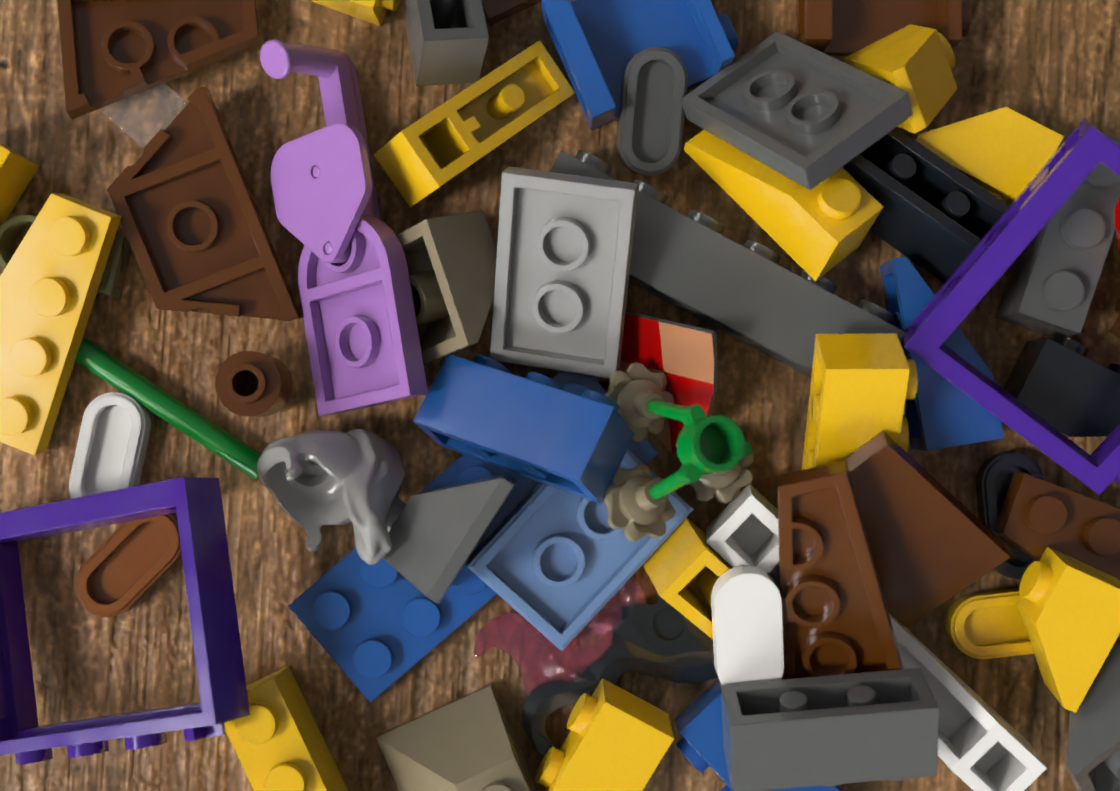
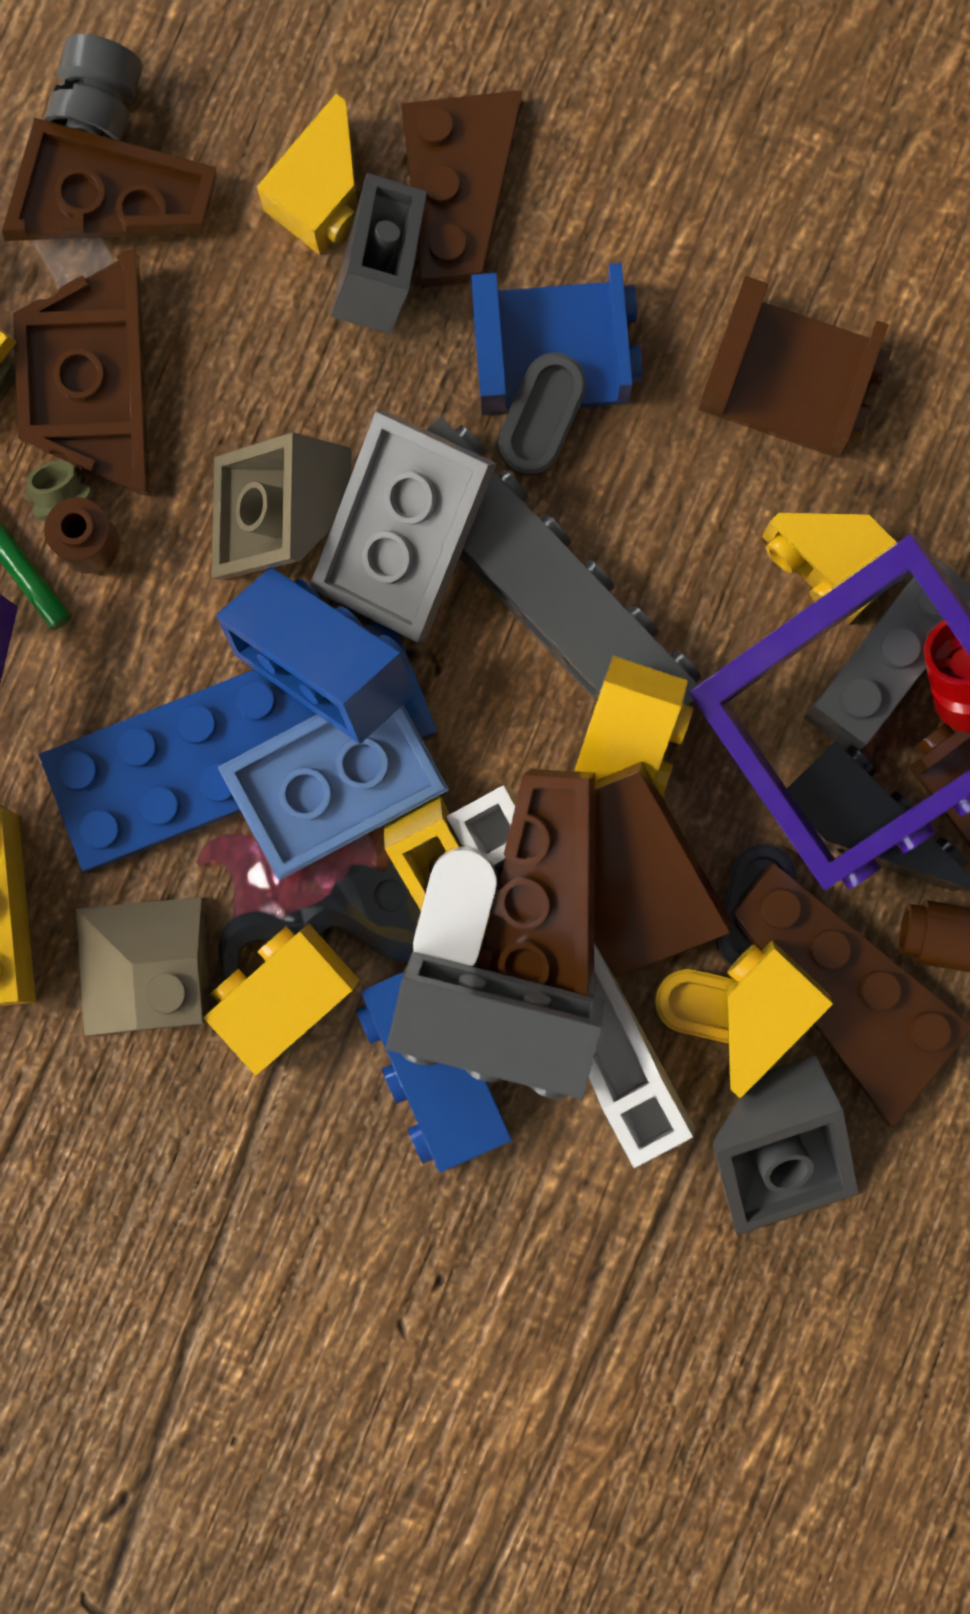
camera: 20 degrees right, 5 degrees down
(209, 344) = (52, 484): none -> olive plate
(334, 481) = (133, 657): light grey piece -> none
(351, 262) = (214, 455): medium lavender plate -> none
(441, 529) = (211, 720): dark grey slope -> none
(473, 123) = (370, 368): yellow slope -> none
(680, 352) = (471, 657): shield -> none
(708, 448) = (469, 712): dark tan plant -> none
(796, 108) = (668, 447): dark grey plate -> none
(809, 225) = (640, 526): yellow slope -> none
(916, 62) = (787, 456): yellow slope -> none
(927, 204) = (745, 560): black brick -> none
(940, 411) = (714, 780): blue slope -> none

